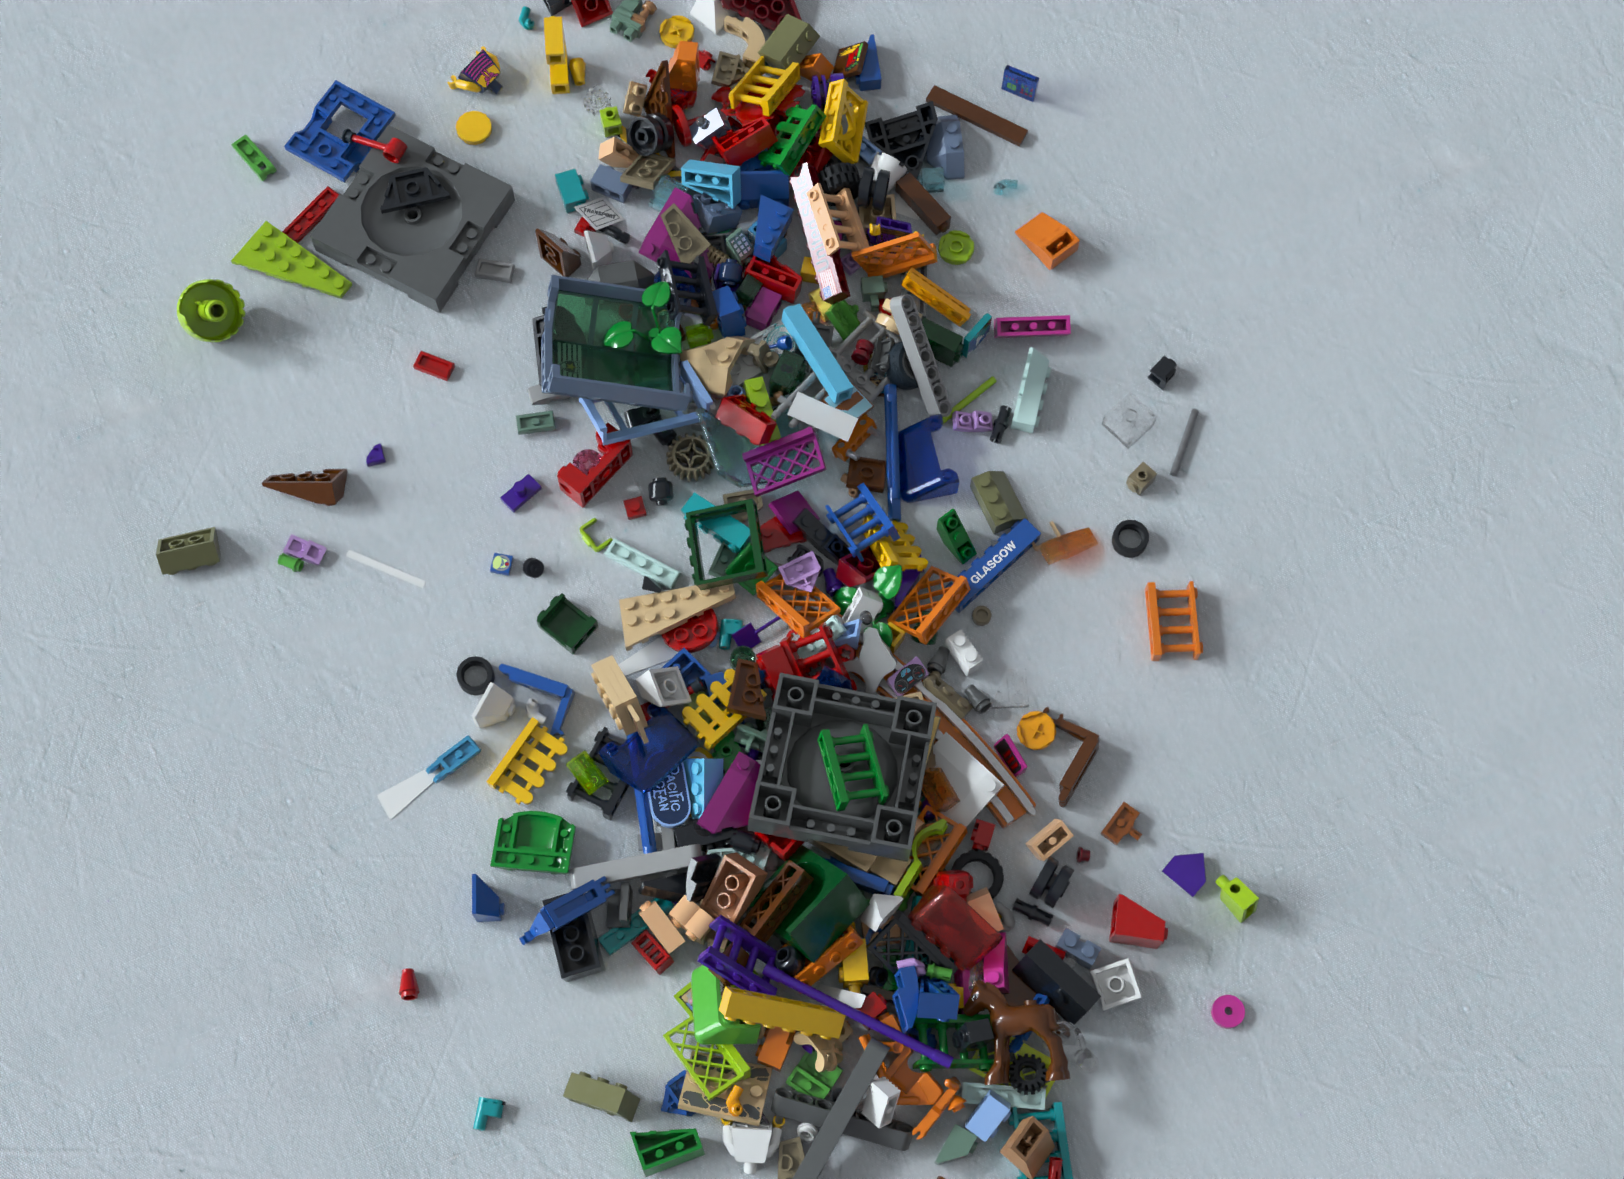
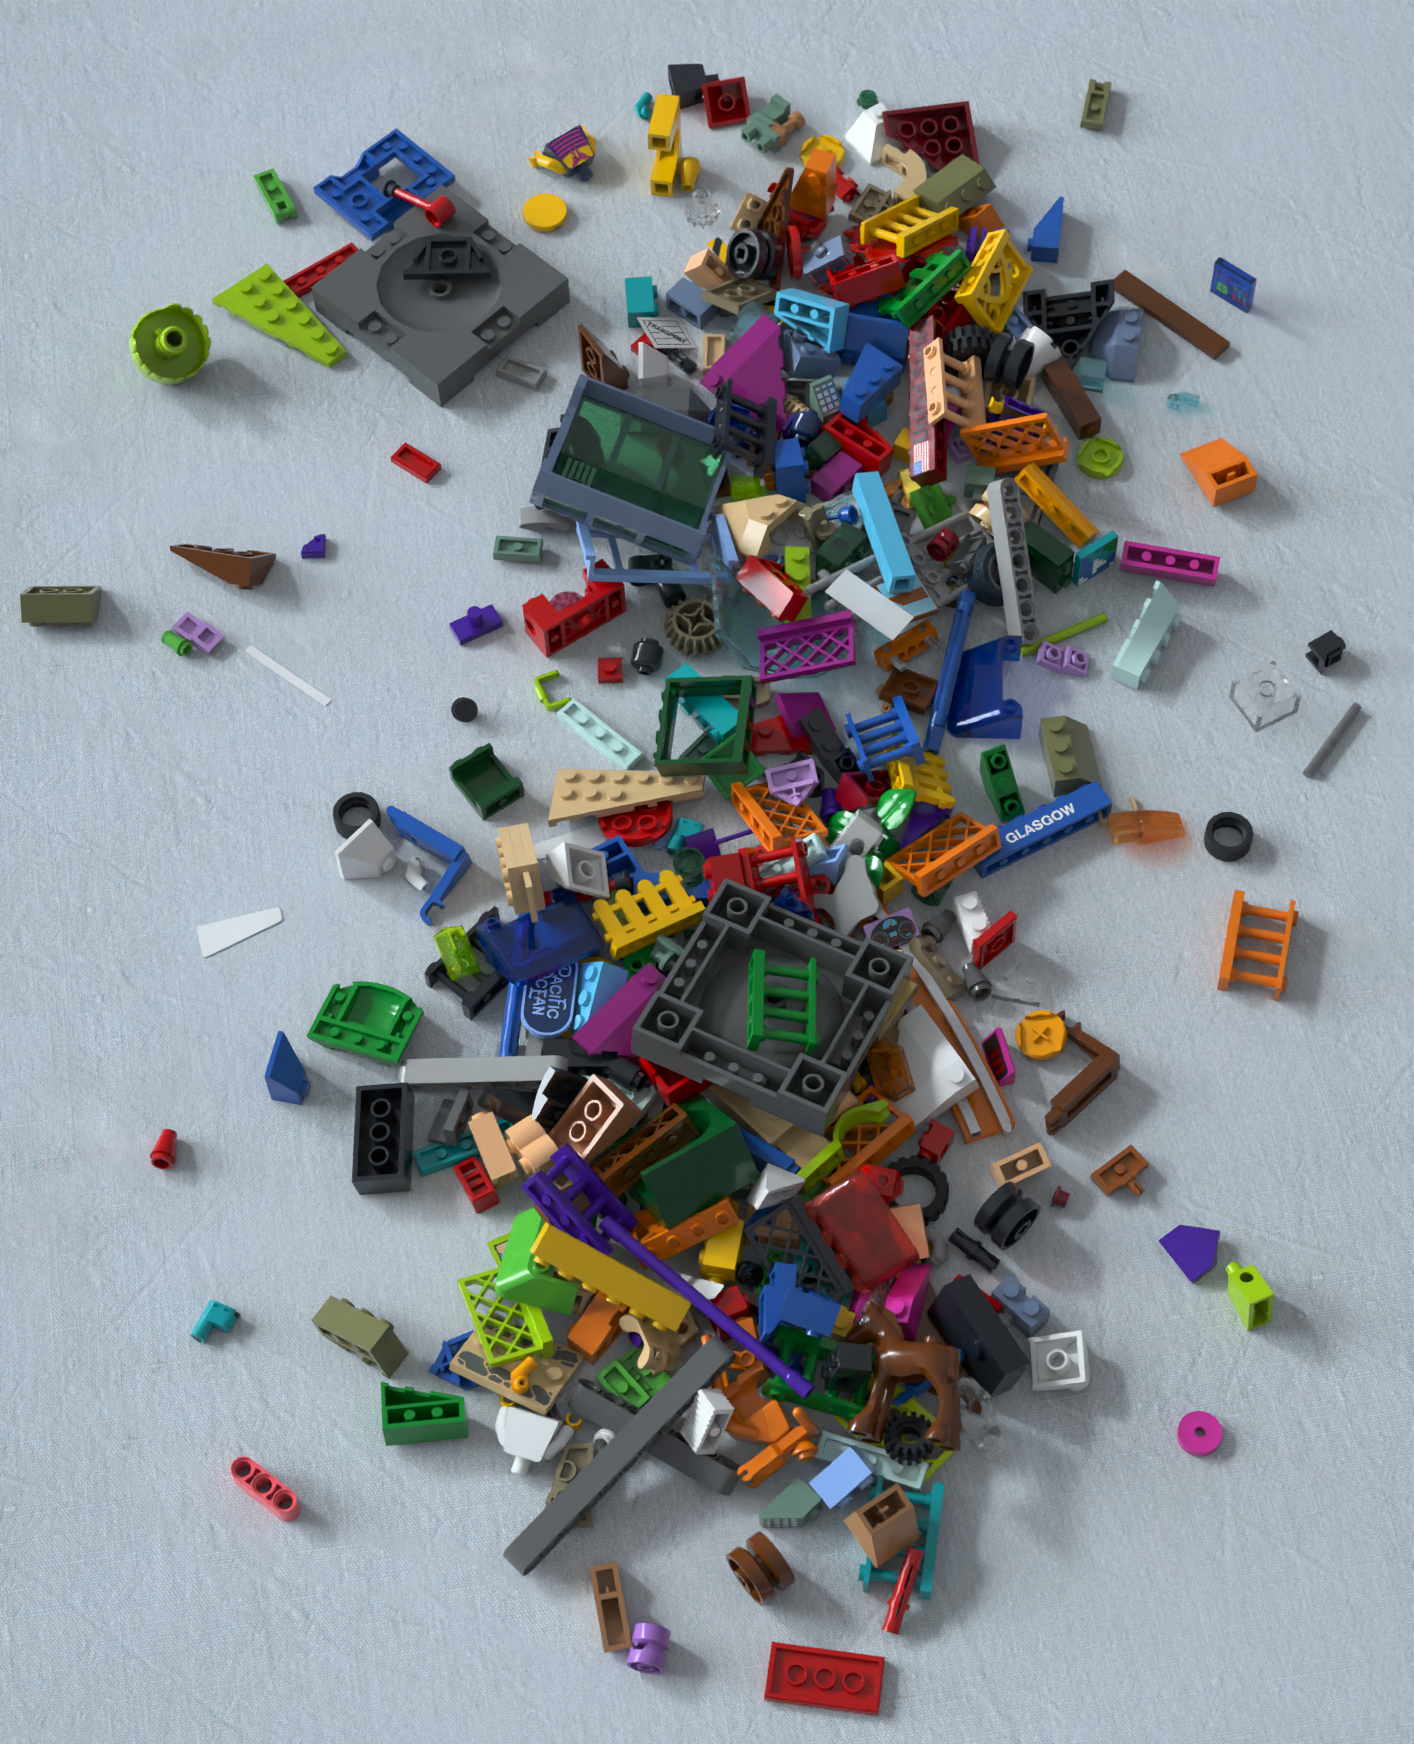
camera: 20 degrees right, 10 degrees down
(454, 758) = (300, 904): dark azure hinge -> none
(501, 564) = (428, 698): tile -> none
(521, 746) = (373, 920): yellow fence -> none
(568, 908) = (383, 1097): blue hinge -> none
(610, 121) = (711, 234): lime brick -> none
(639, 221) = (713, 348): none -> tan tile
(651, 585) = (601, 758): black slope -> none
(665, 341) = (695, 478): green plant -> none
(683, 234) = (759, 369): dark tan wing -> none
(746, 691) = (679, 897): reddish brown wing -> none
(789, 960) = (640, 1221): black head -> none
(851, 60) = (1028, 220): tile -> none
(919, 966) = (803, 1273): lavender arm -> none
(938, 972) = (827, 1285): bright green pin -> none
(981, 615) = (1009, 886): dark tan tile -> none
(985, 665) = (994, 940): none -> red tile
(1000, 424) = (1098, 669): black pin -> none
(1136, 925) = (1104, 1294): red slope -> none
(1141, 478) = (1262, 769): dark tan brick -> none

